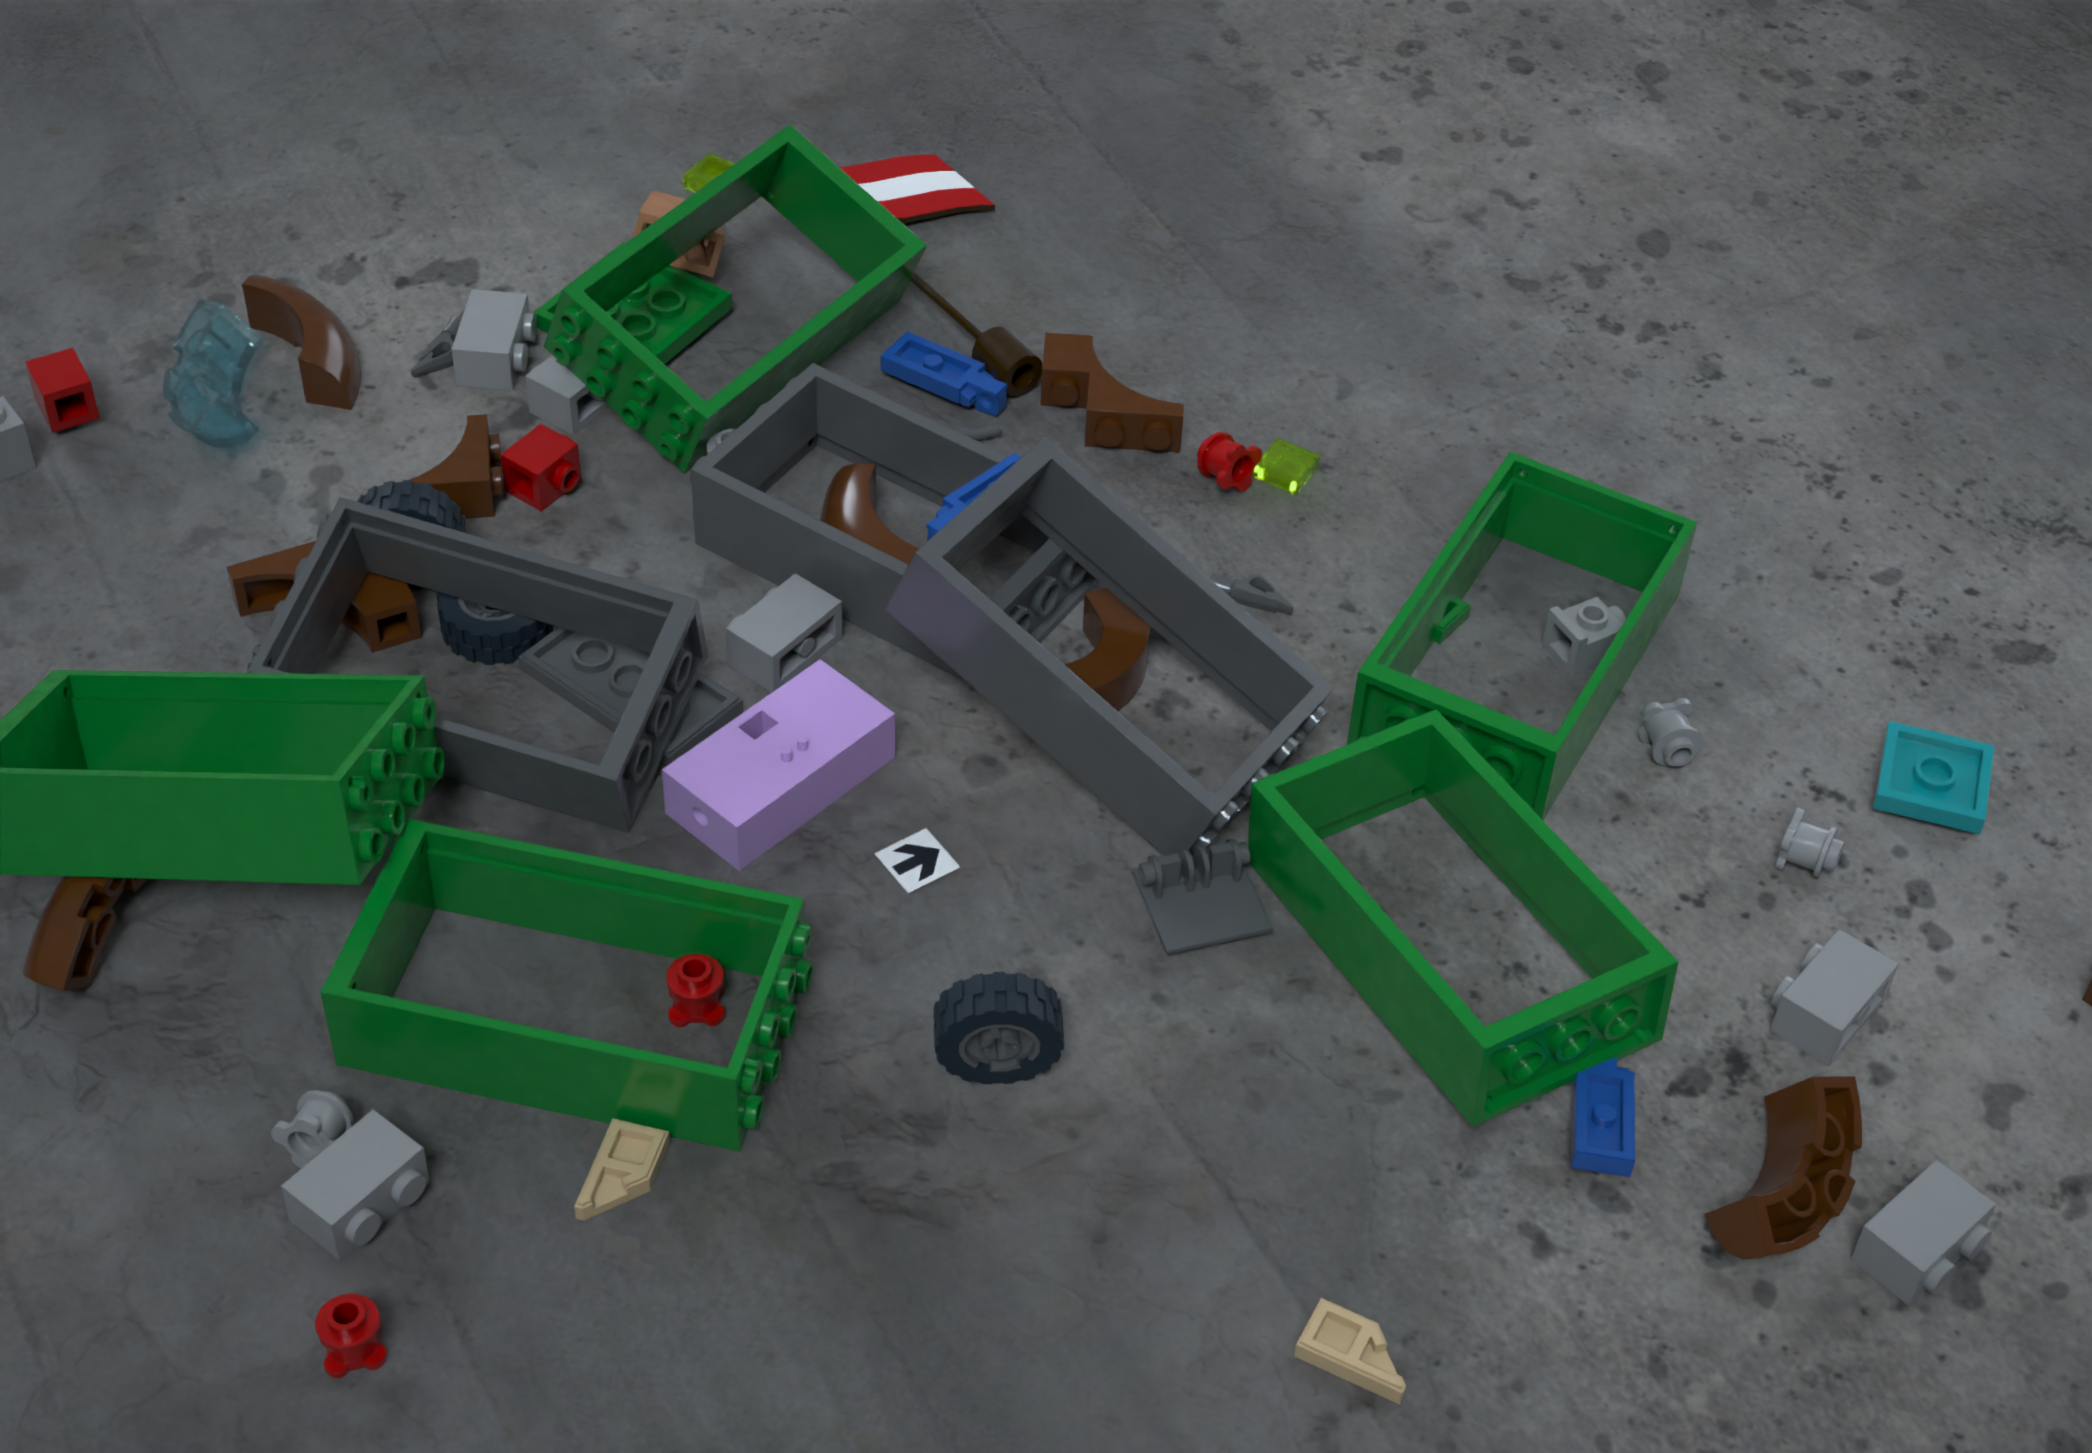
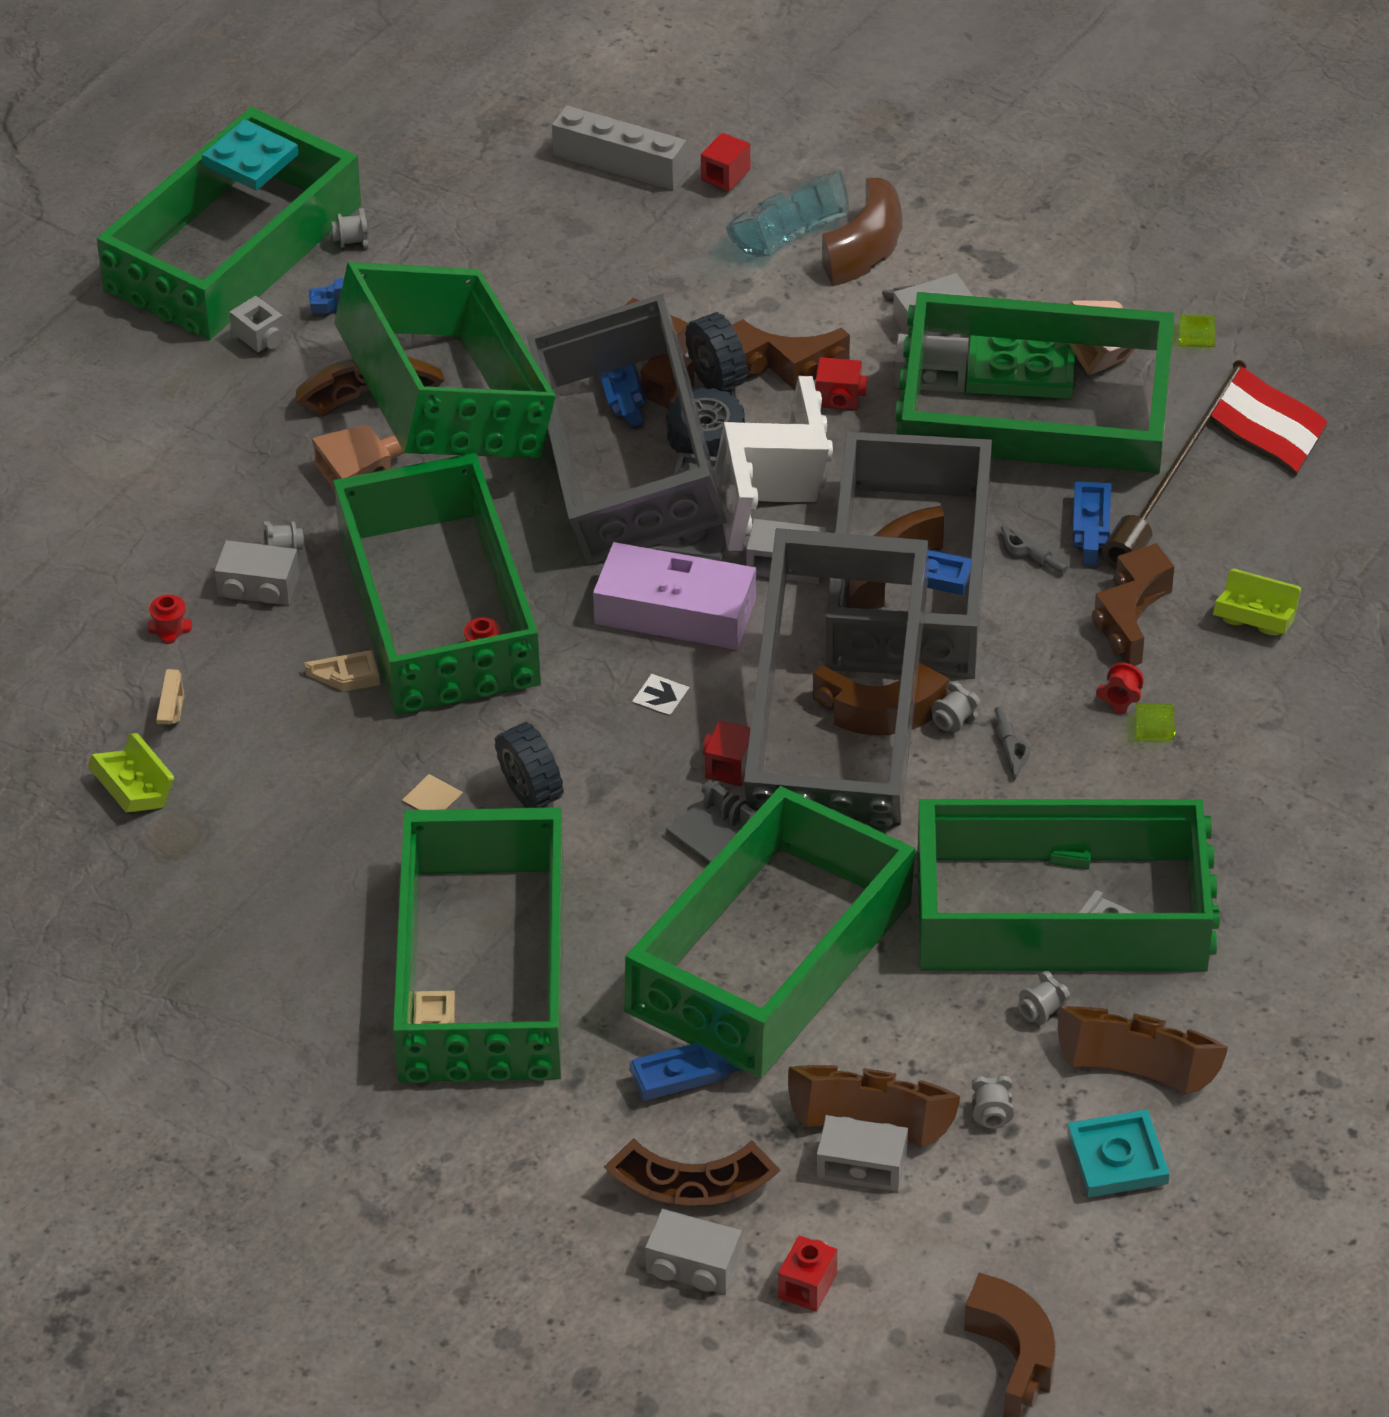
camera: 65 degrees right, 0 degrees up
(232, 980) = (353, 453): none -> nougat torso
(370, 652) = (625, 393): none -> blue hinge
(535, 1401) = (171, 698): none -> tan tile
(656, 544) = (772, 462): none -> white bracket
(927, 1174) = (432, 794): none -> tan sticker
(1089, 831) = (726, 753): none -> red brick
(1177, 310) = (1258, 602): none -> lime bracket
(1321, 1136) = (478, 844): none -> green door
(1756, 946) = (872, 1098): none -> reddish brown brick
(1792, 683) = (1139, 1047): none -> reddish brown brick
(2005, 1132) = (807, 1273): none -> red brick

